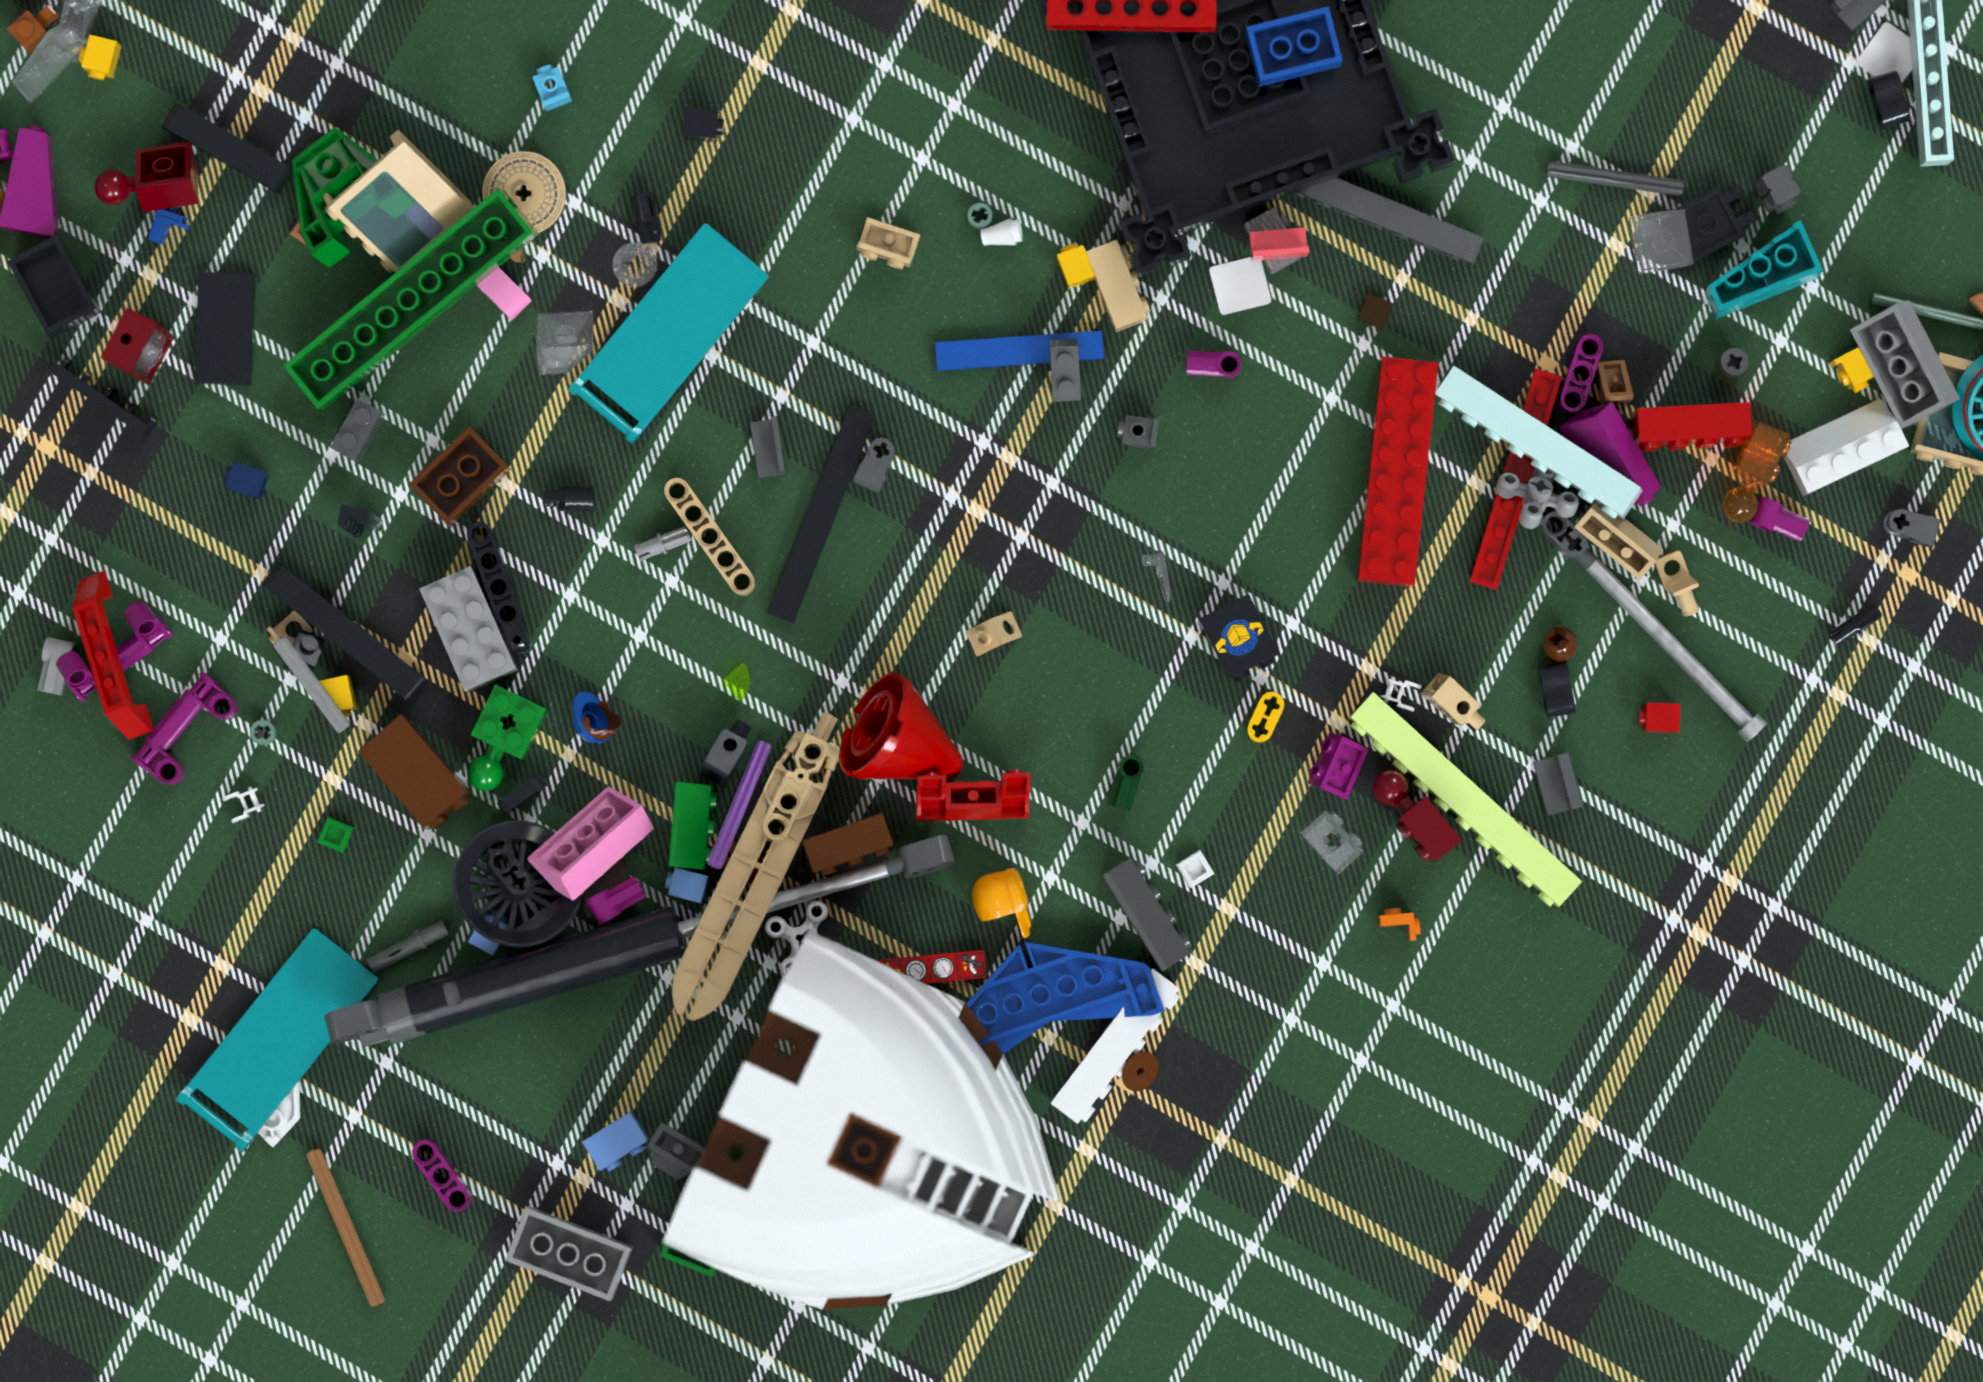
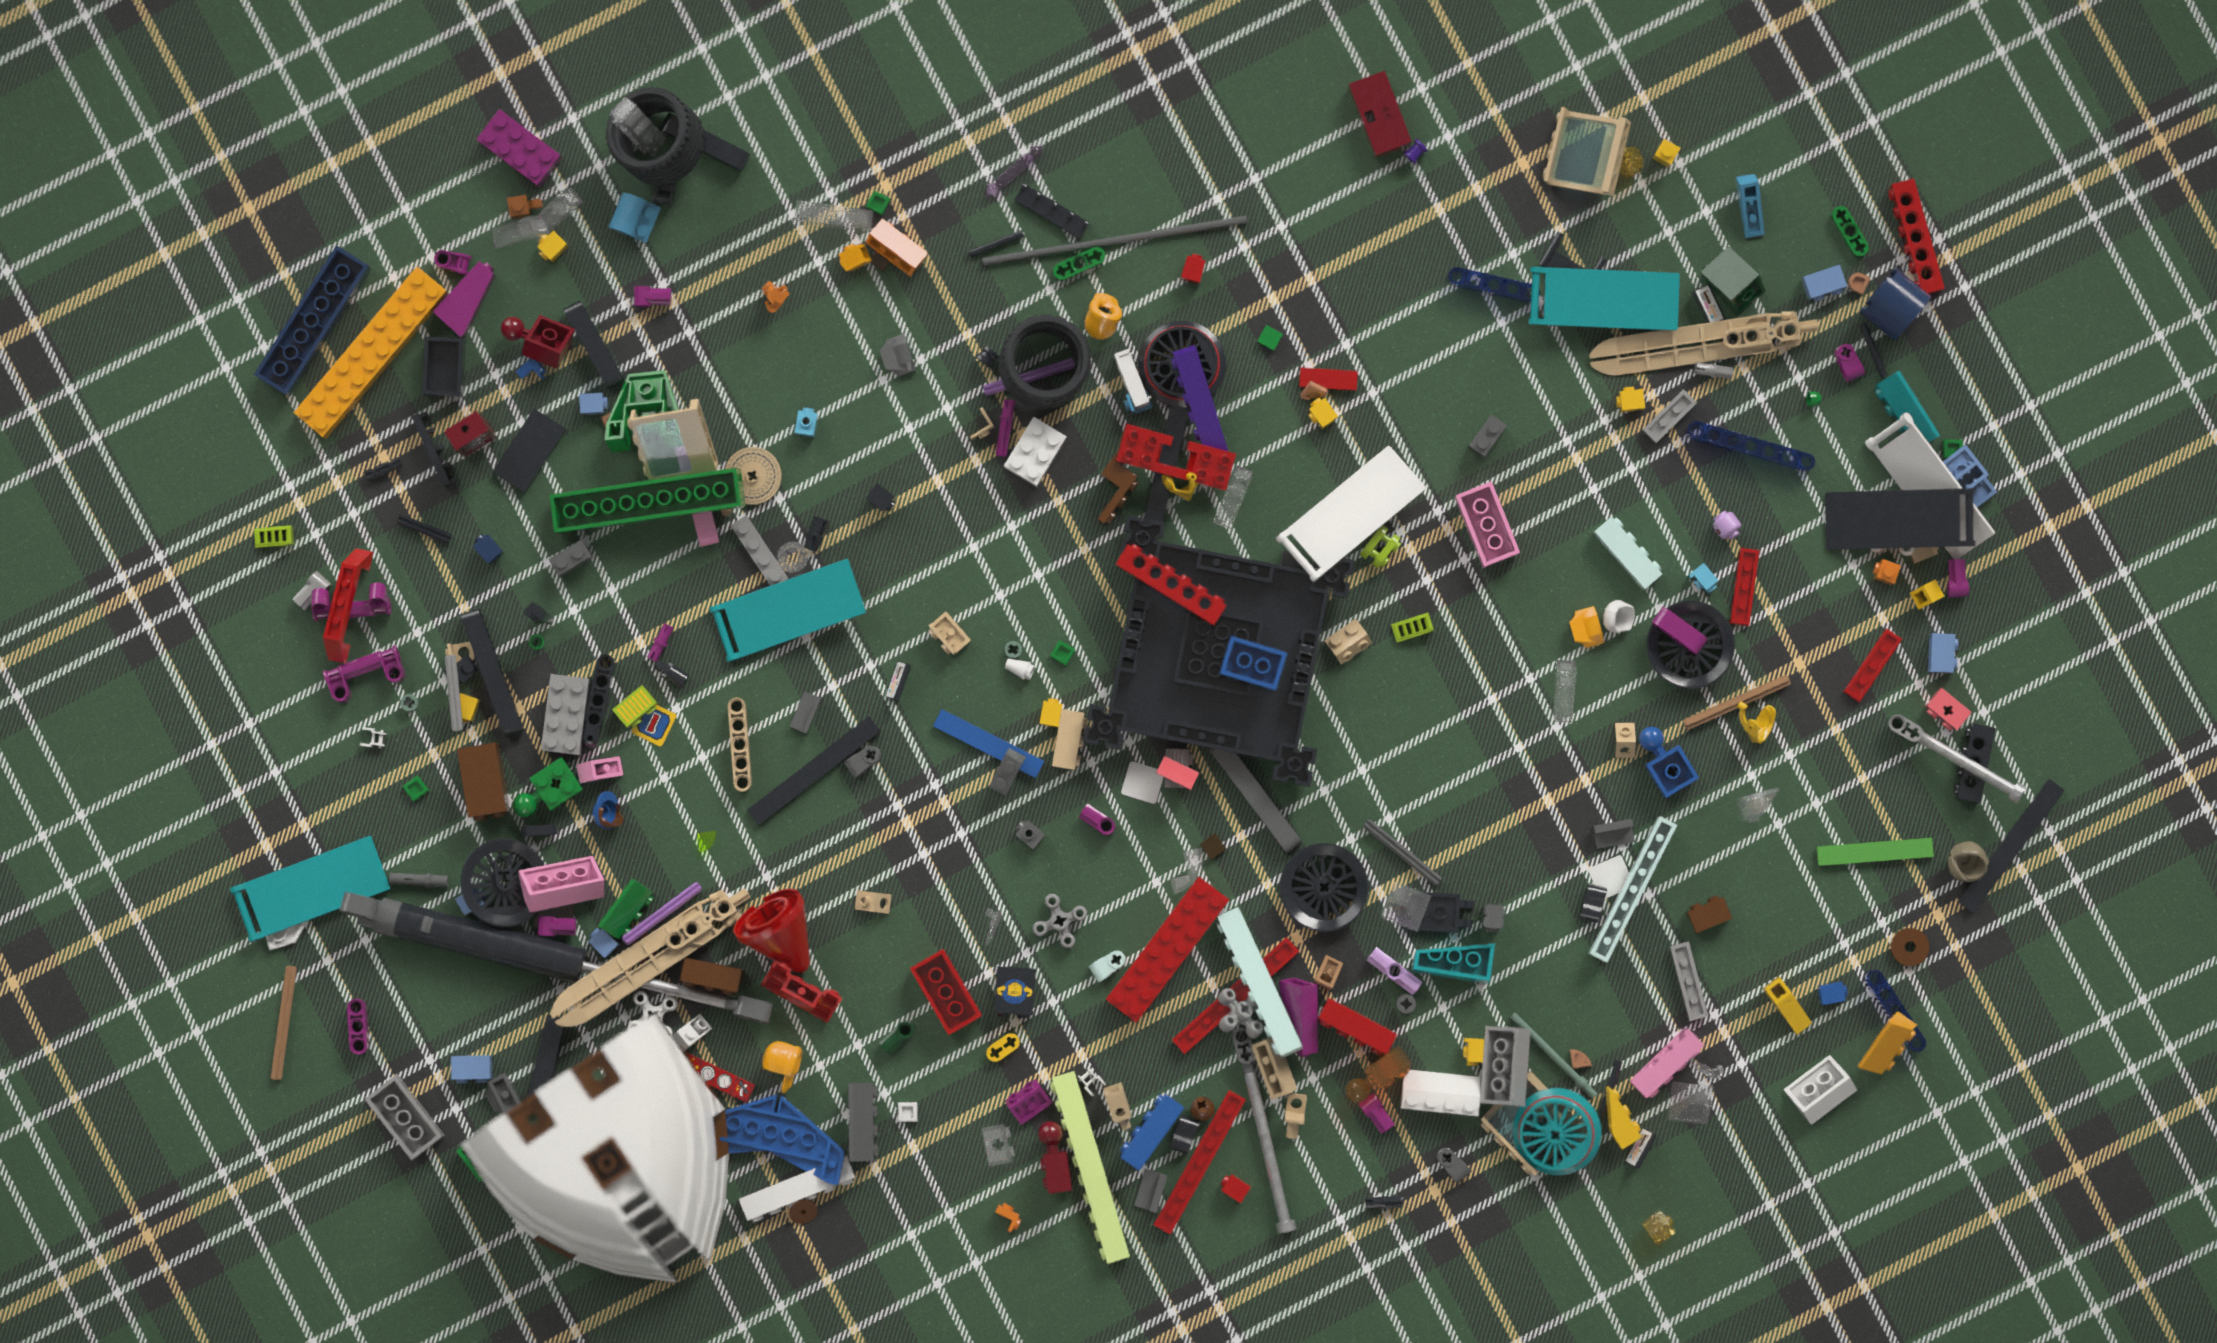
camera: 35 degrees right, 0 degrees up
(54, 460) = (383, 468): none -> black axle
(151, 504) = (424, 528): none -> black axle
(256, 49) = (647, 296): none -> magenta piece
(269, 222) = (593, 403): none -> medium blue brick
(382, 559) = (540, 642): none -> green hinge
(459, 476) = (614, 621): reddish brown brick -> none
(533, 469) = (660, 642): none -> magenta pin
(550, 568) = (635, 707): none -> lime brick
(552, 673) = (599, 769): none -> bright pink slope
(563, 340) = (723, 577): clear slope -> none
(585, 575) = (655, 726): none -> sticker
(588, 282) = (759, 551): none -> light grey plate
(662, 543) = (709, 731): light grey axle -> none
(701, 1068) = (547, 1055): none -> black beam
(722, 763) = (665, 883): black torso -> none
(859, 340) = (898, 681): none -> slope
(866, 929) = (692, 1032): none -> white slope
(1043, 183) = (1062, 652): none -> green tile
(1153, 689) = (946, 991): none -> red brick
(1230, 507) = (1056, 911): none -> light grey gear
(1331, 540) = (1104, 967): none -> light aqua piece
(1366, 347) = (1193, 861): none -> clear brick
(1515, 708) = (1152, 1131): none -> blue brick
(1535, 324) = (1302, 911): none -> black piece
(1586, 362) = (1301, 959): magenta beam -> none
(1596, 712) = (1199, 1162): none -> red plate
(1676, 329) = (1404, 979): none -> lavender piece

